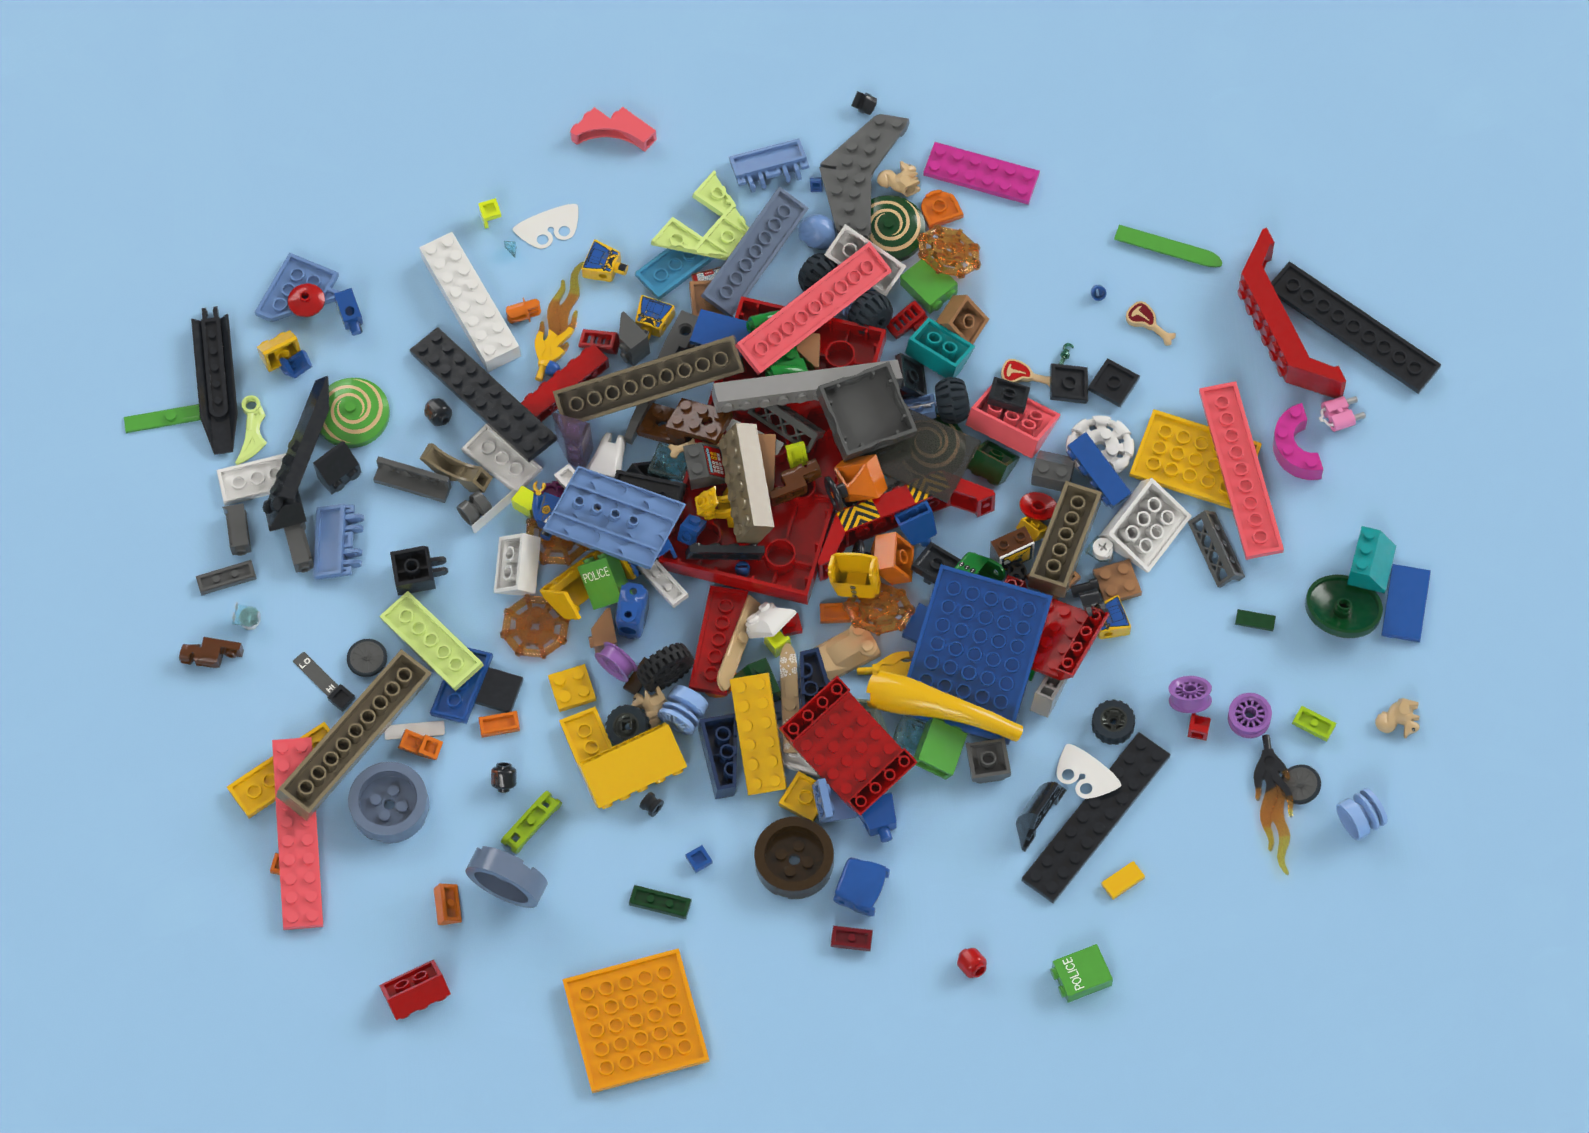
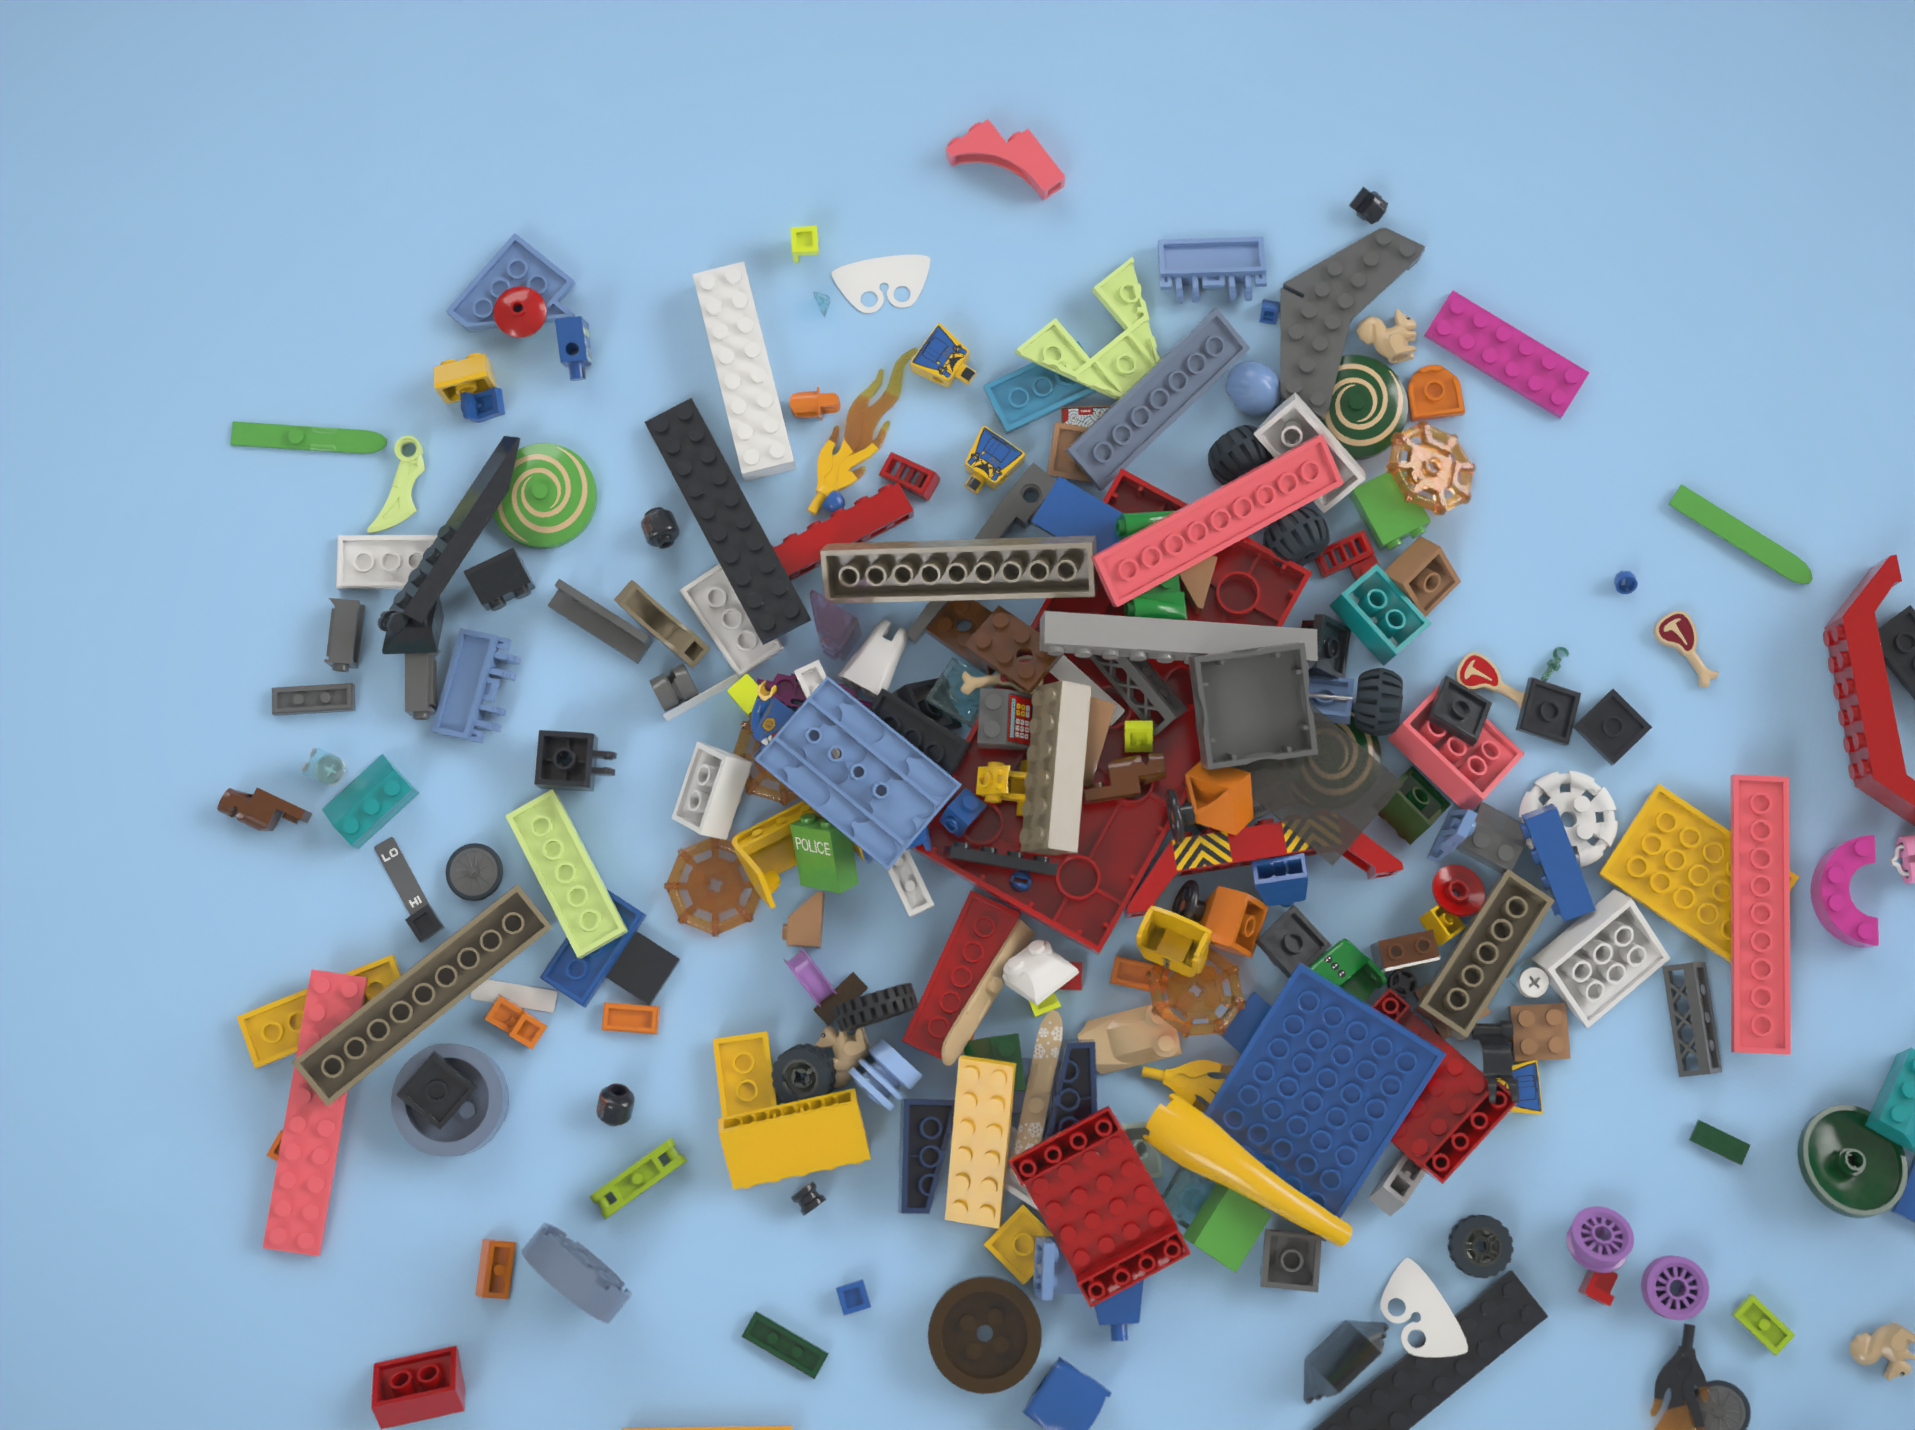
camera: 15 degrees right, 15 degrees up
(215, 380) = (368, 398): black hinge -> none
(284, 630) = (369, 802): none -> teal slope
(379, 793) = (437, 1090): none -> black tile
(572, 688) = (743, 990): yellow plate -> none
(632, 610) = (849, 909): blue piece -> none
(633, 341) = (952, 492): dark grey slope -> none
(1025, 468) = (1454, 830): none -> medium blue wing

